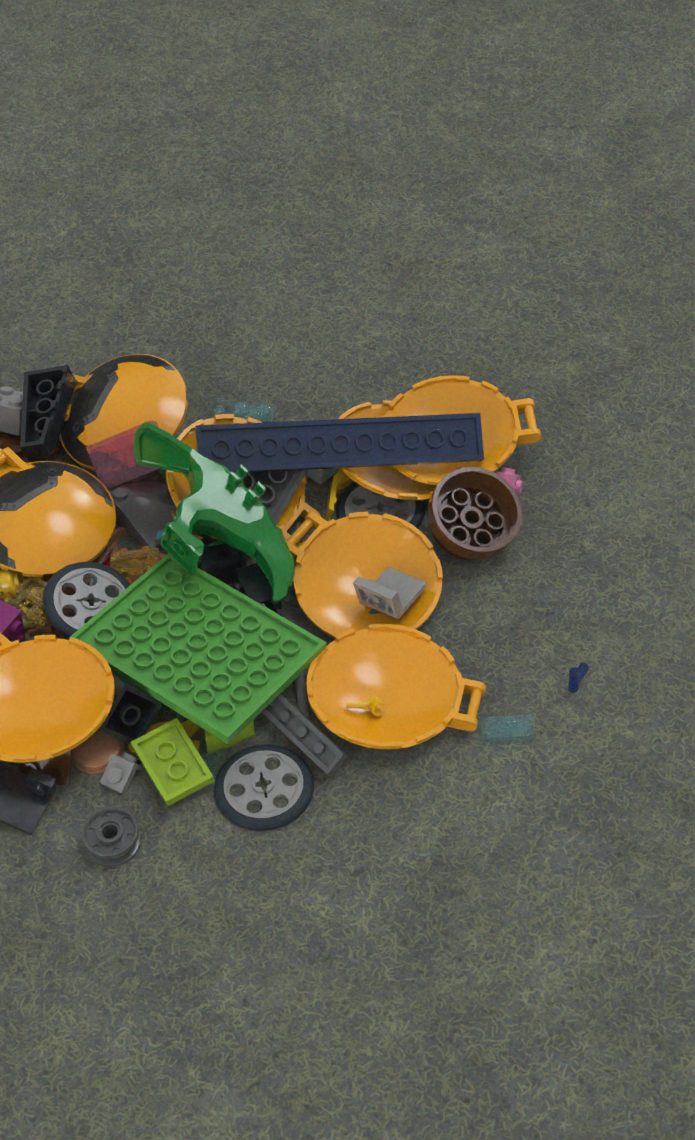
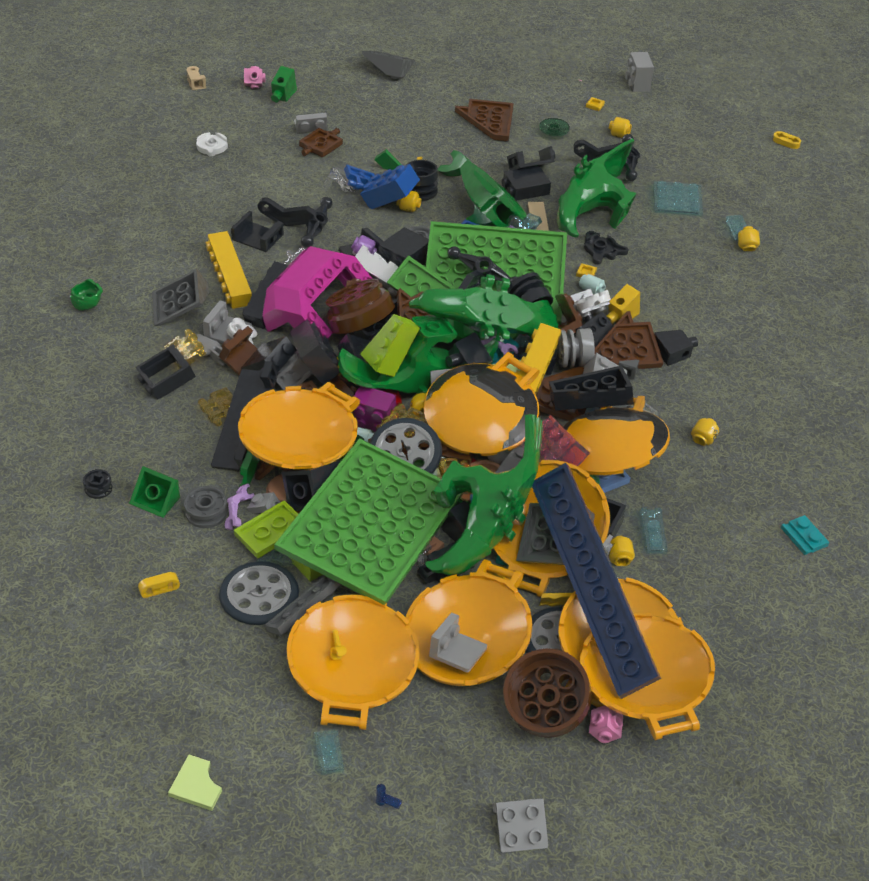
camera: 75 degrees right, 5 degrees down
(43, 971) = (97, 483): none -> black wheel
(65, 783) = (248, 468): none -> green tile
(72, 895) = (155, 492): none -> green slope
(101, 793) = (233, 501): none -> lavender piece
(112, 343) = (705, 431): none -> yellow head
(236, 893) = (158, 584): none -> yellow beam
(276, 298) = (805, 535): none -> teal plate
(539, 861) = (195, 785): none -> yellowish green tile
(610, 565) = (521, 825): none -> light grey bracket

